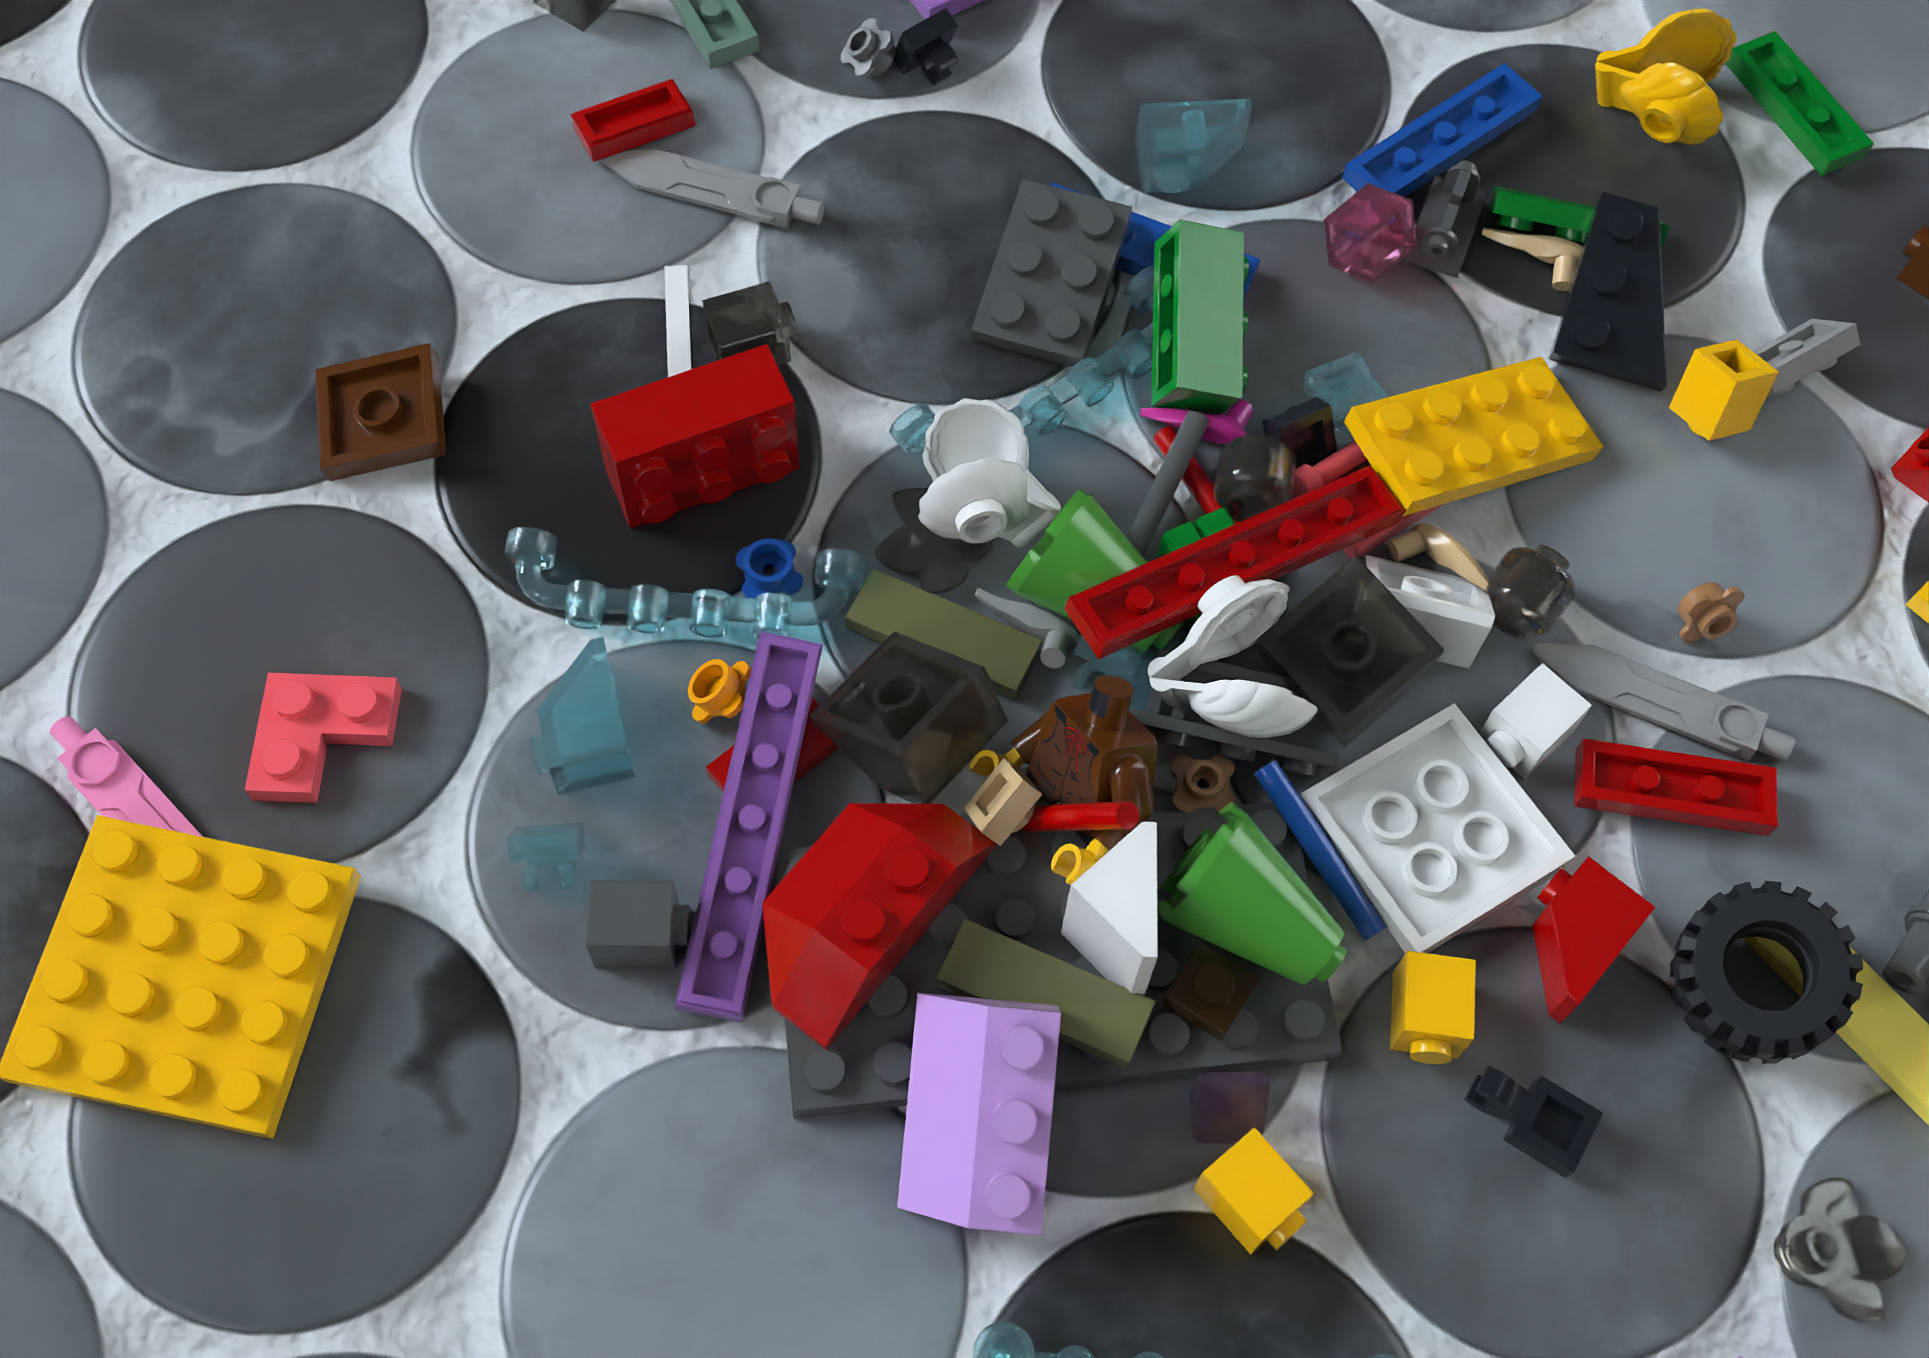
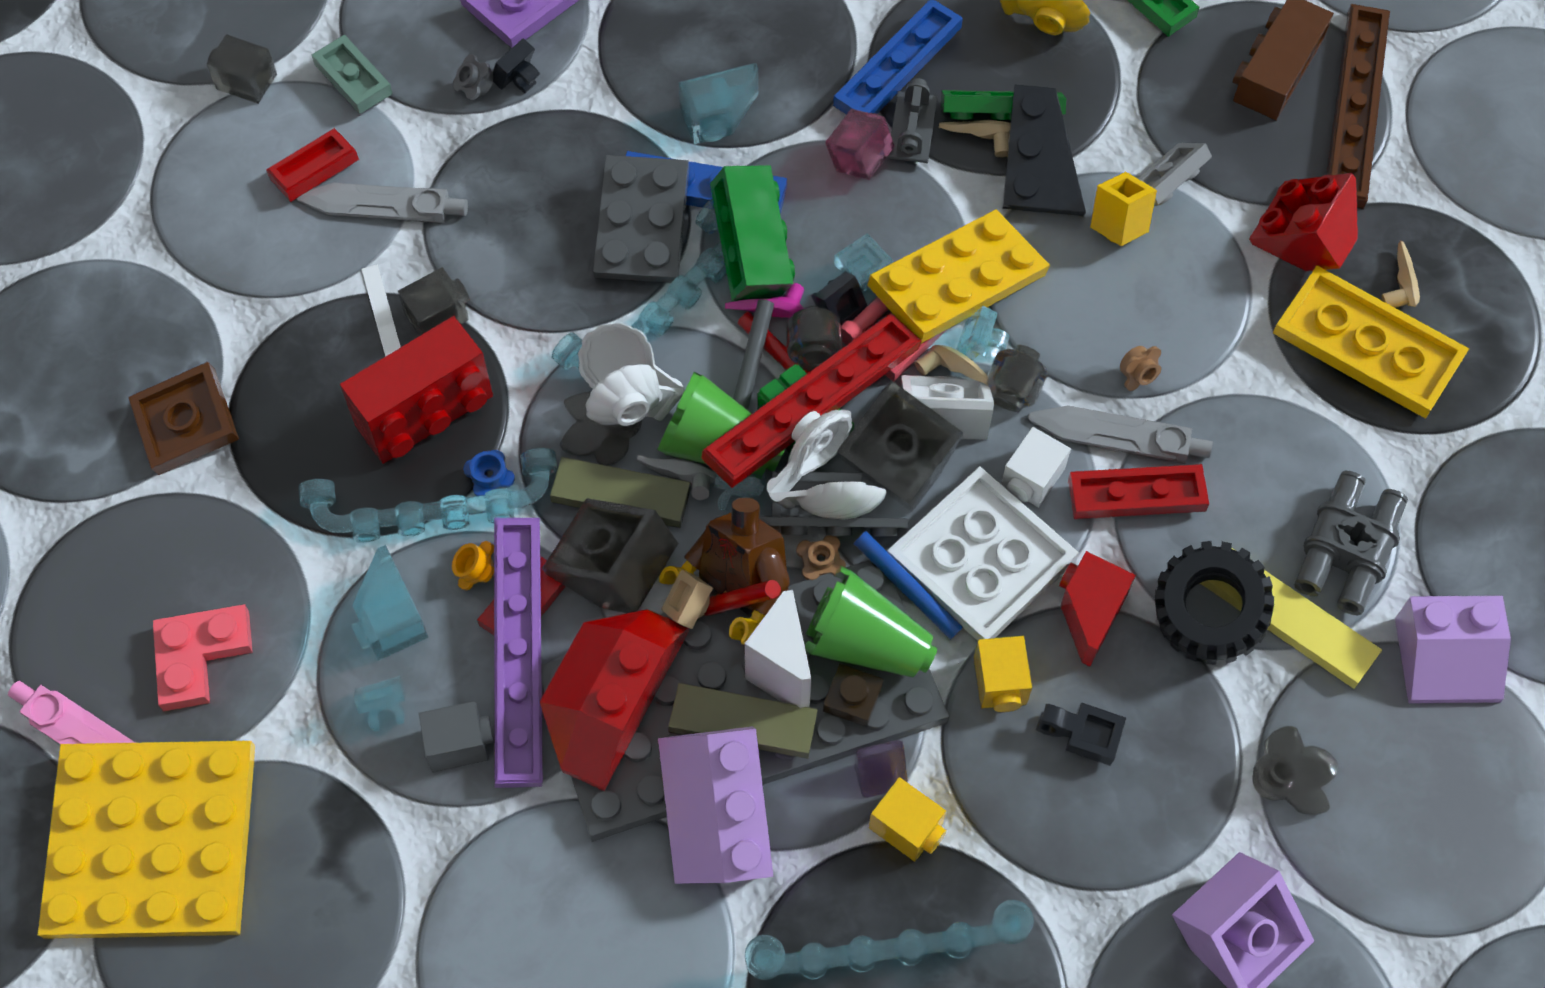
camera: 10 degrees left, 0 degrees up
(1488, 523) = (980, 336): none -> clear light blue tile

